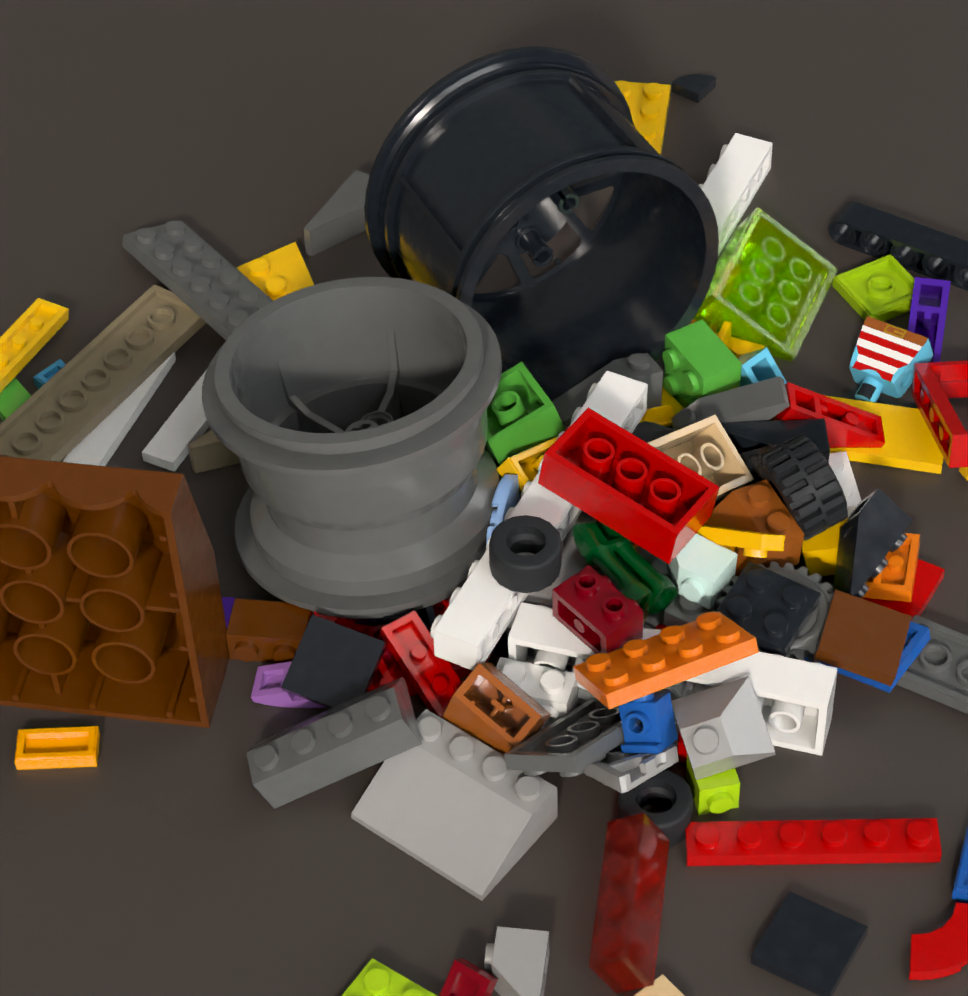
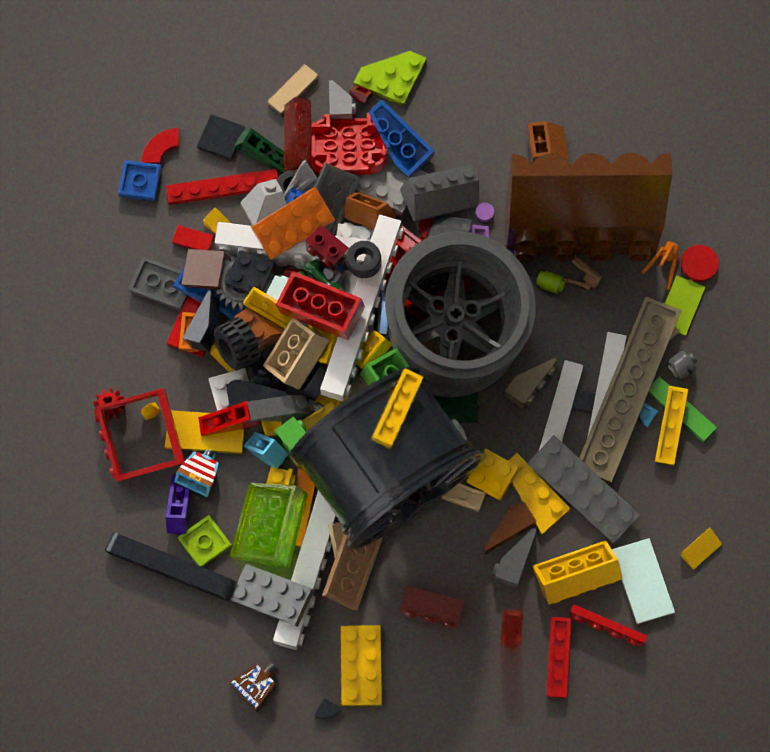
camera: 170 degrees right, 25 degrees up
(42, 207) = (701, 548): none -> yellow slope
(78, 823) = (546, 138): none -> dark orange slope
(150, 179) = (643, 581): none -> light aqua tile
(158, 405) = (584, 401): none -> black tile
(227, 128) = (601, 623): none -> red plate
(250, 725) = (484, 212): none -> medium lavender tile
(252, 190) = (578, 572): none -> yellow slope
(316, 106) = (558, 657): none -> red plate
(337, 253) = (513, 524): none -> reddish brown slope
(378, 112) = (511, 628): none -> clear red slope
(392, 846) = (404, 145): none -> blue wedge
(511, 148) = (397, 408): none -> yellow plate
(515, 855) = (348, 145): none -> red tile
(721, 893) = (261, 150): none -> dark green slope
(756, 181) = (272, 595): none -> plate
(807, 112) = (255, 685): none -> torso
(832, 772) = (212, 219): none -> yellow slope
(884, 747) = (192, 238): none -> red tile

